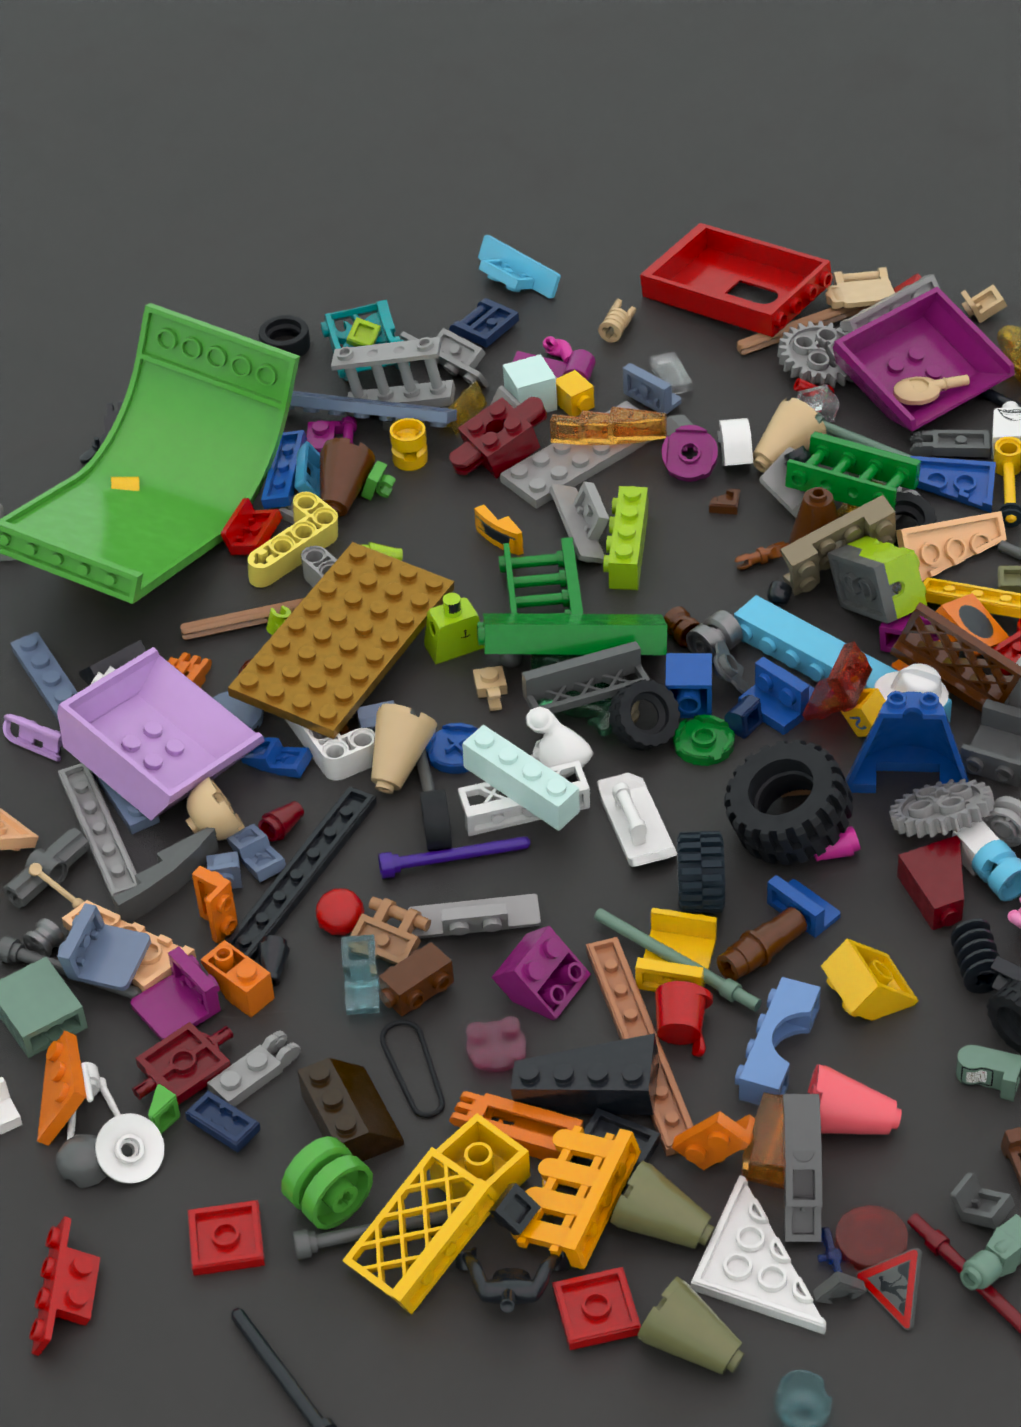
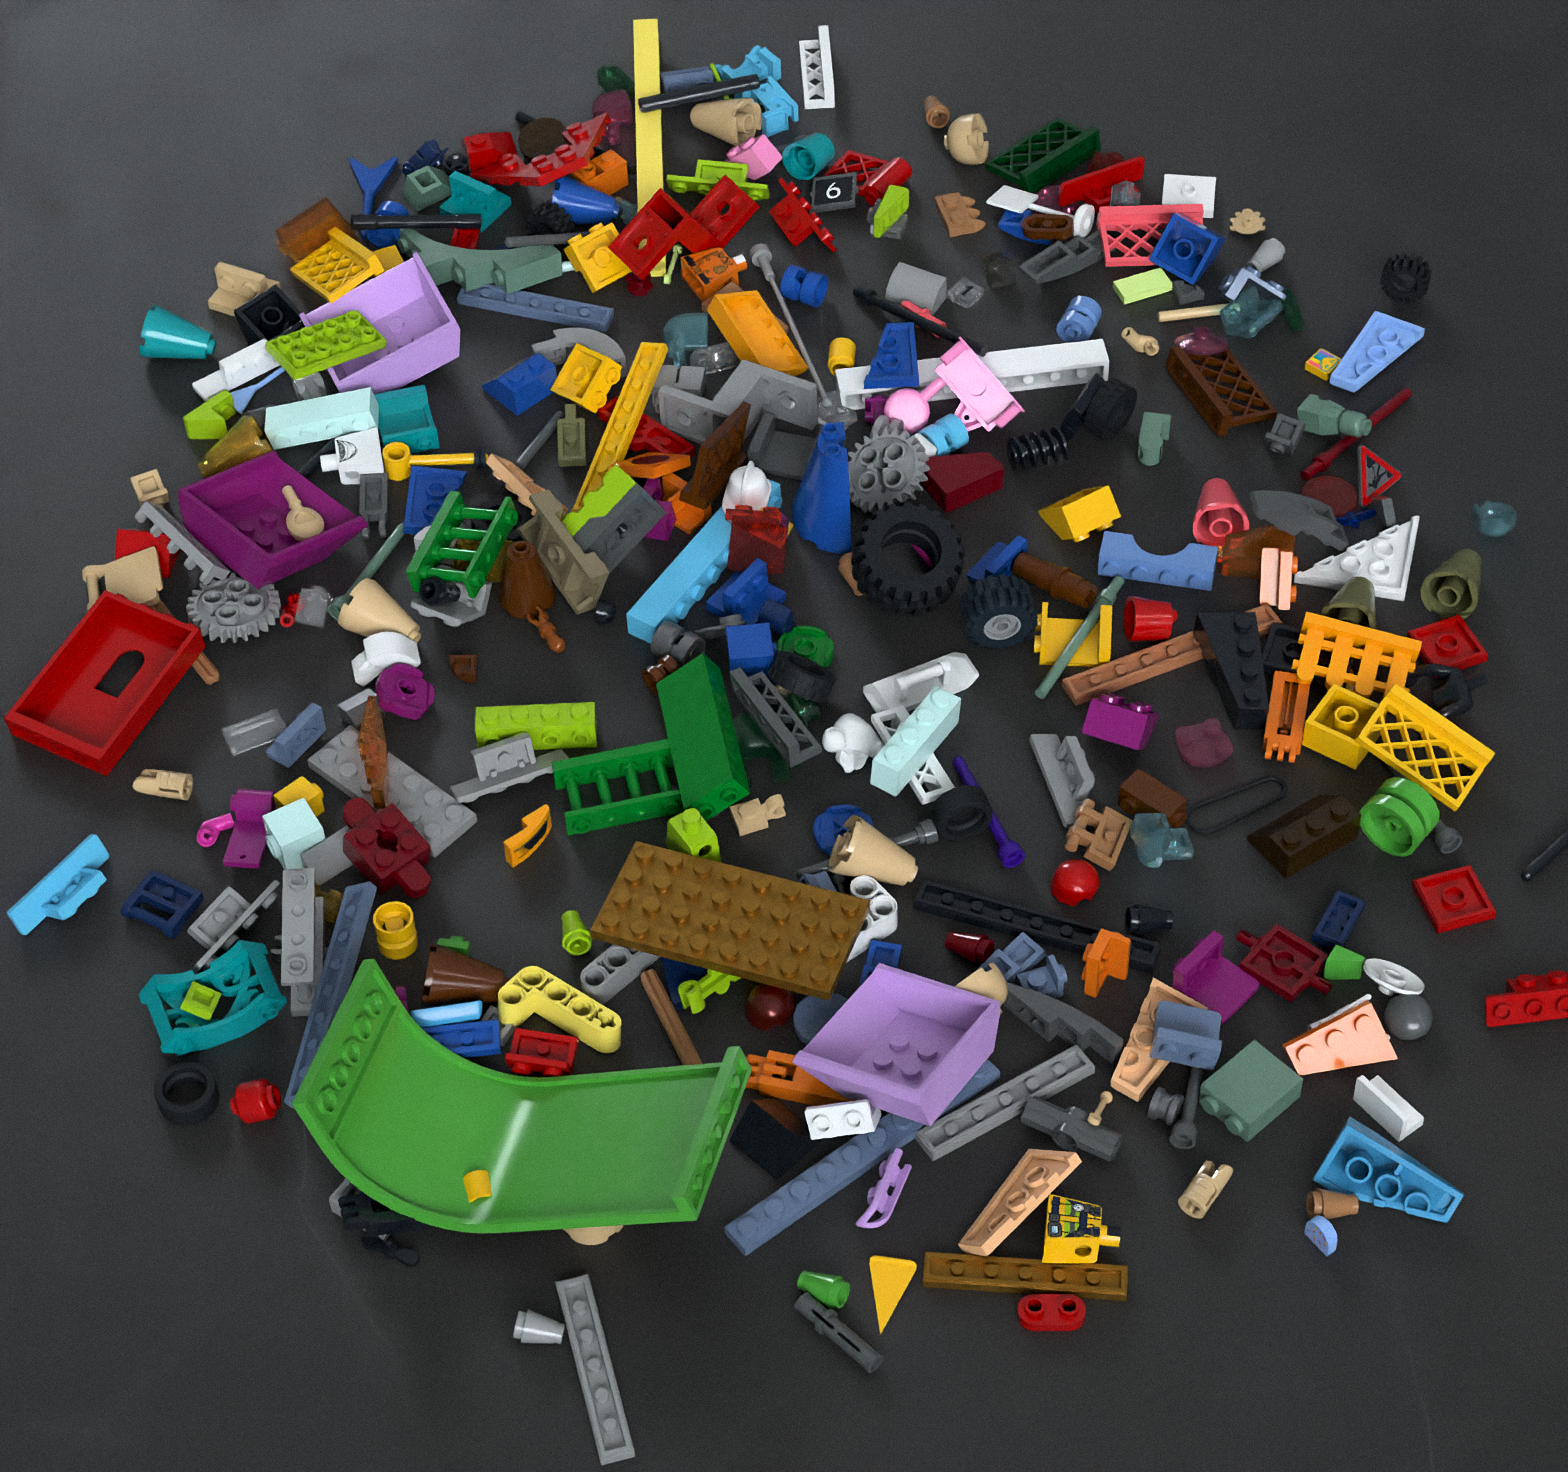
camera: 100 degrees left, 5 degrees up
(239, 978) = (1184, 928): orange slope -> none
(254, 1069) = (1269, 910): light grey hinge -> none
(514, 1209) = (1382, 686): black tile -> none

